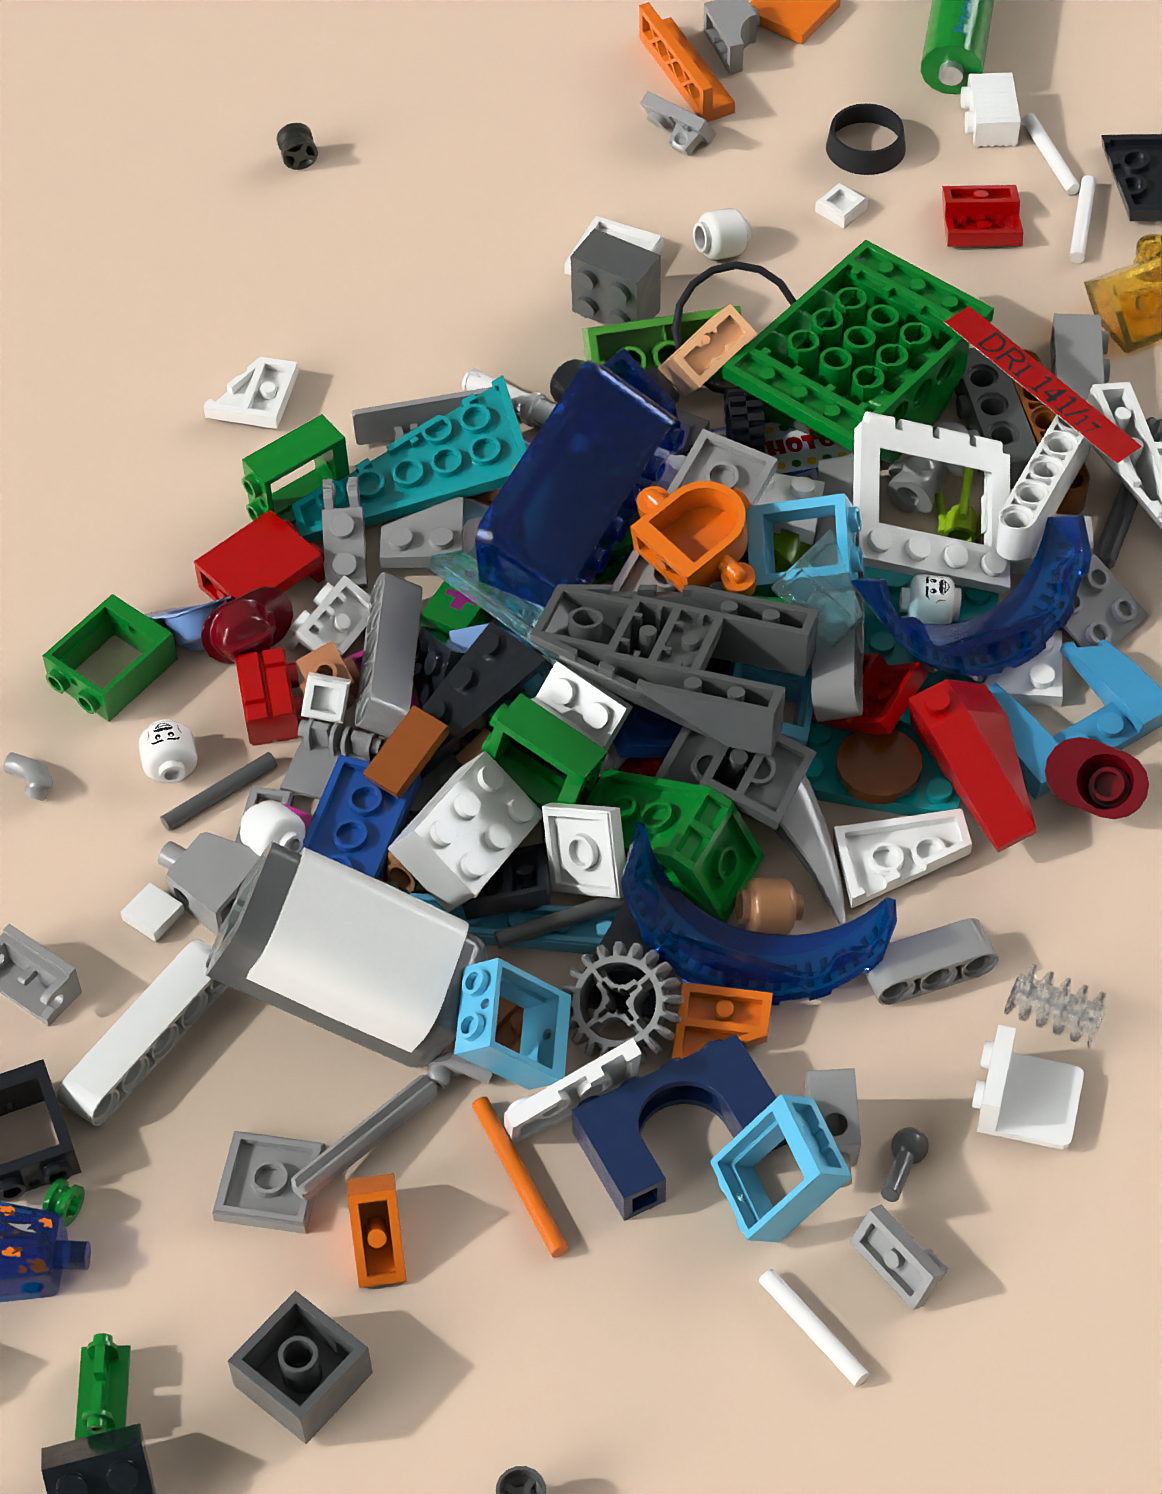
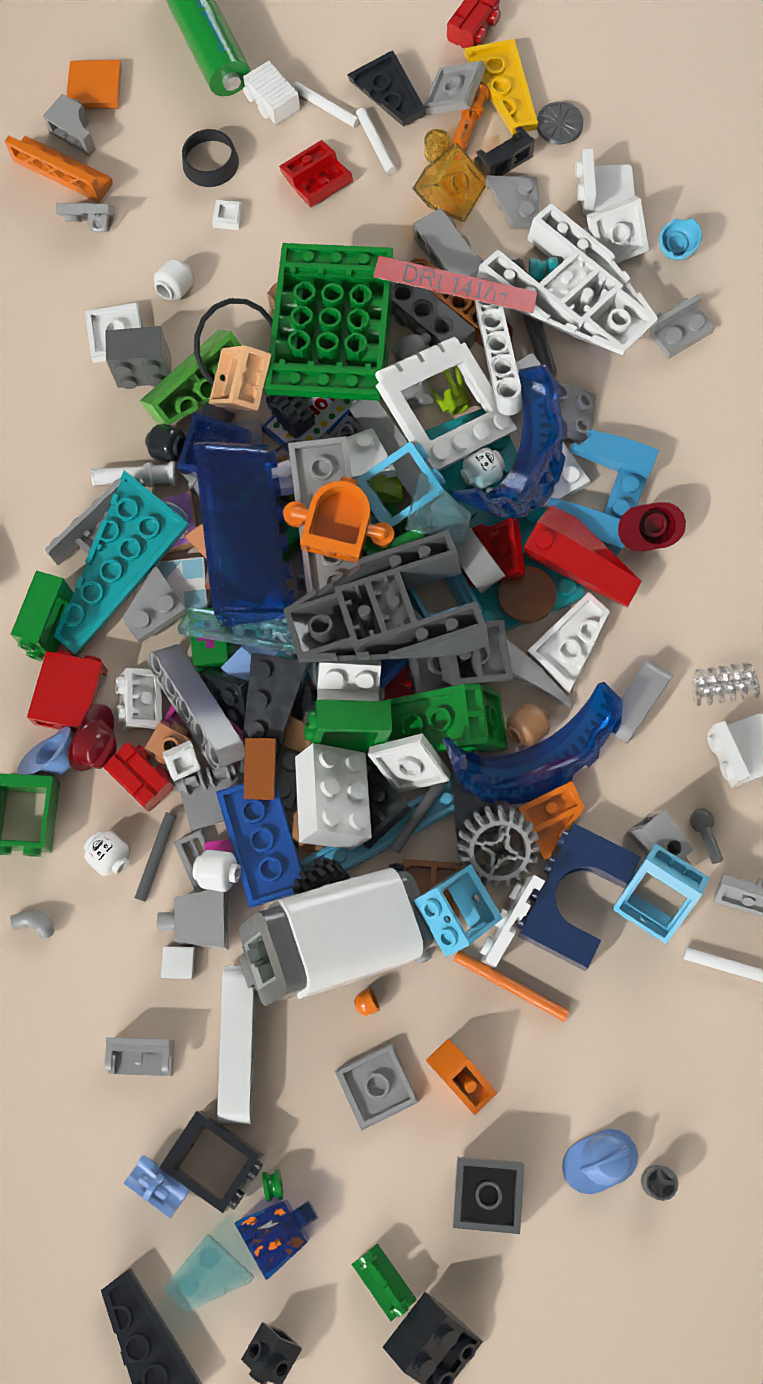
camera: 30 degrees left, 20 degrees up
(332, 1083) = (366, 1002): none -> orange hinge
(344, 536) = (104, 640): light grey hinge -> none
(363, 1137) = (412, 1025): light grey axle -> none
(470, 1438) = (600, 1161): none -> medium blue piece

